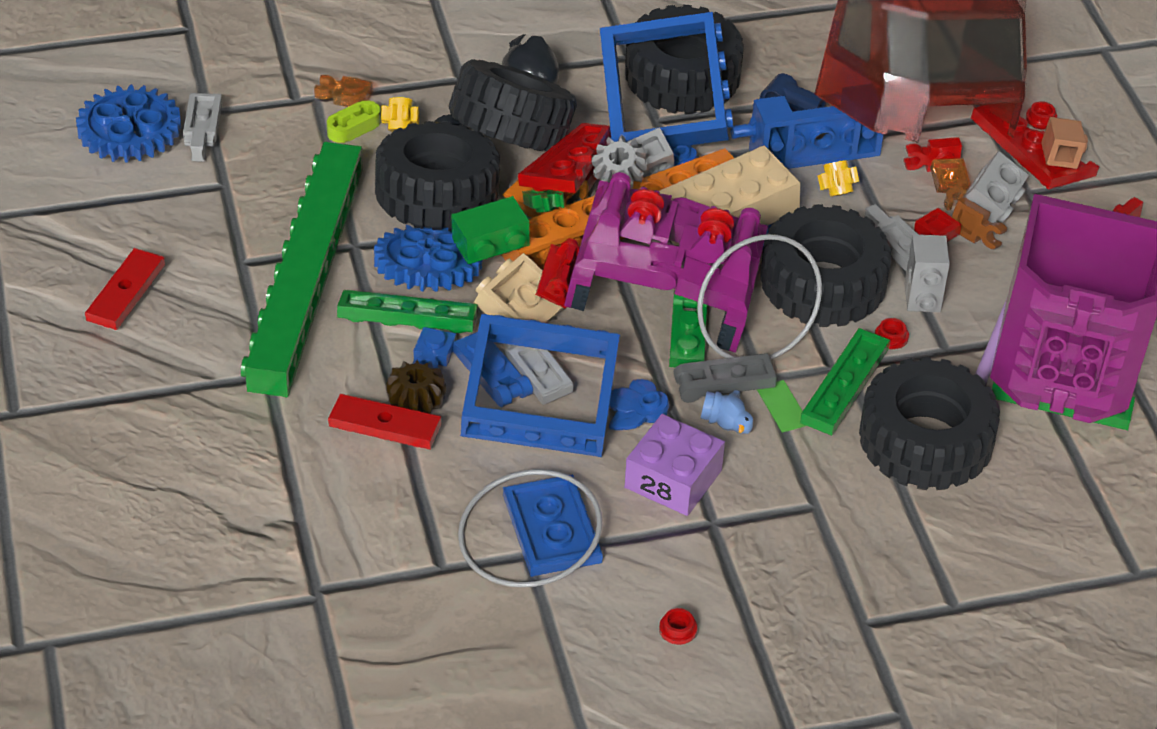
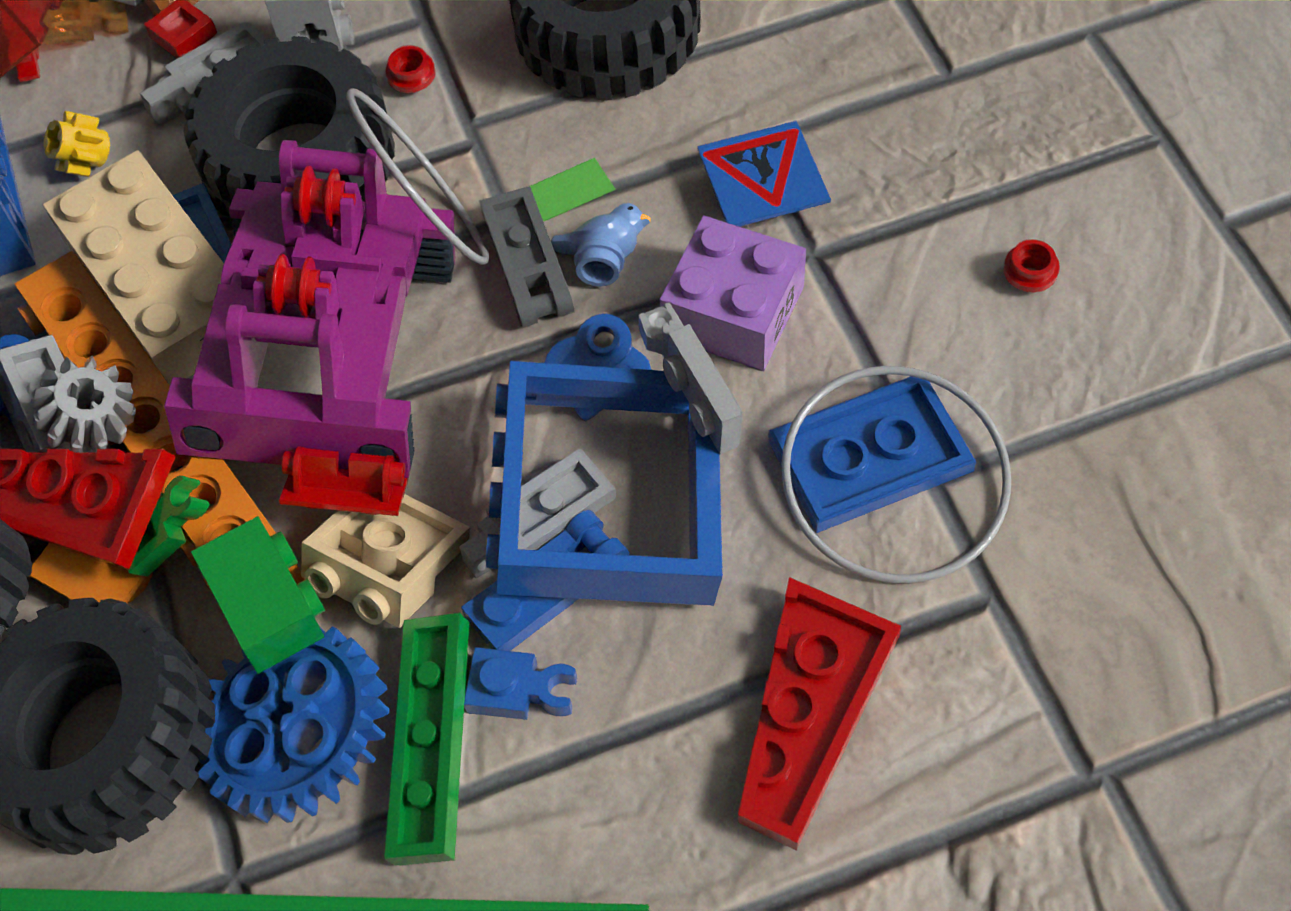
camera: 90 degrees left, 15 degrees up
(384, 421) = (700, 763): red tile -> none
(399, 474) = (813, 699): none -> red wing
(416, 387) = (635, 703): dark brown gear -> none
(592, 411) = (692, 371): none -> light grey hinge
(686, 336) = (449, 316): green plate -> none
(772, 495) = (763, 174): none -> blue piece
(844, 381) = (517, 113): green plate -> none

